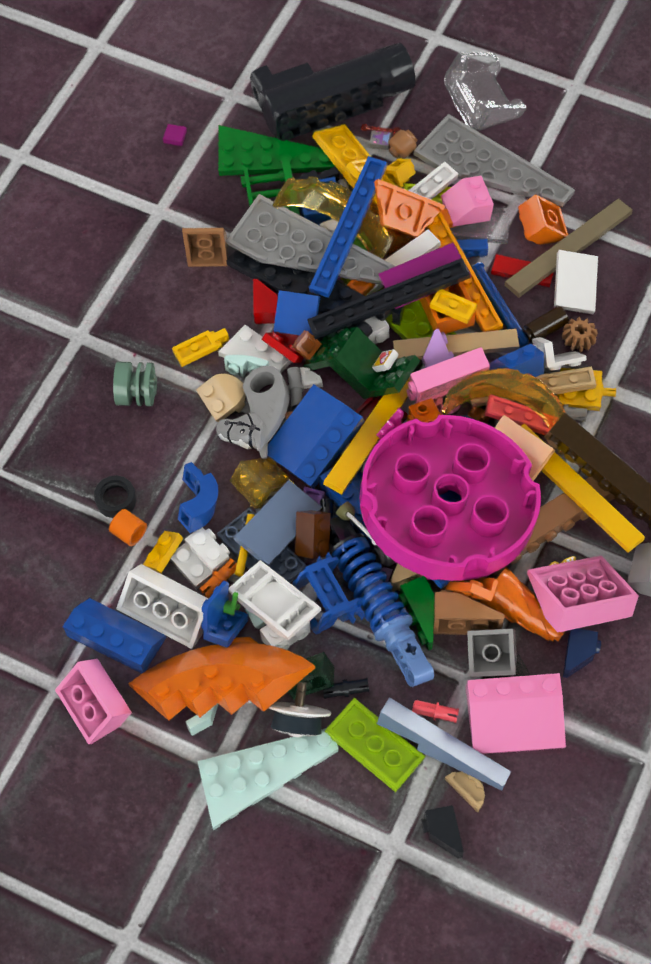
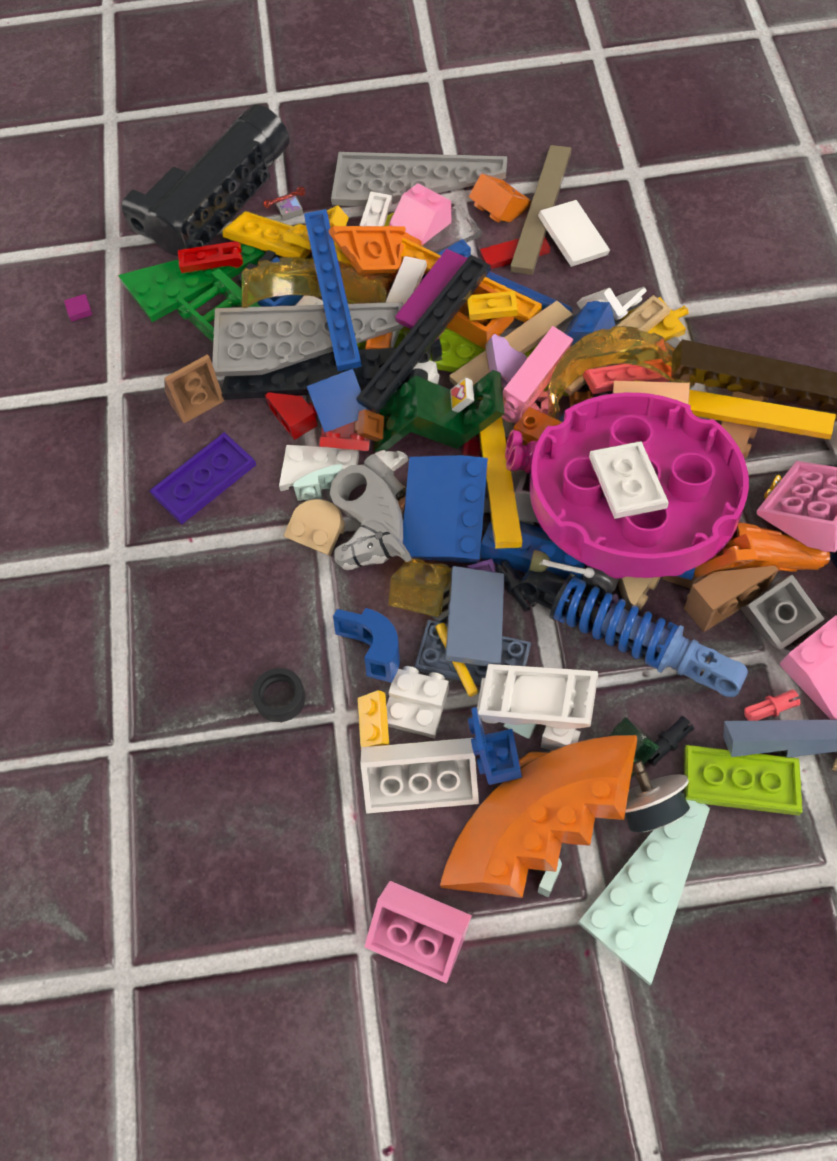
camera: 30 degrees left, 0 degrees up
(113, 634) = (386, 842): blue slope -> none
(127, 527) = (317, 718): orange piece -> none
(136, 384) = (218, 565): sand green wheel -> none
(172, 314) = (202, 478): none -> dark purple tile
(200, 346) = (255, 492): yellow hinge -> none
(218, 577) = (452, 711): orange pin -> none
(231, 606) = (492, 732): bright green hand -> none
(290, 149) = (210, 257): none -> red plate
(312, 534) = (520, 605): reddish brown brick -> none
(329, 593) = (585, 650): blue animal -> none
(402, 144) = (315, 197): medium nougat head -> none
(419, 602) = (675, 607): green slope -> none
(436, 489) = (628, 480): none -> white tile
(477, 93) = (345, 122): clear windscreen -> none
(546, 324) = (577, 283): dark brown brick -> none
(579, 334) = (614, 275): medium nougat gear -> none

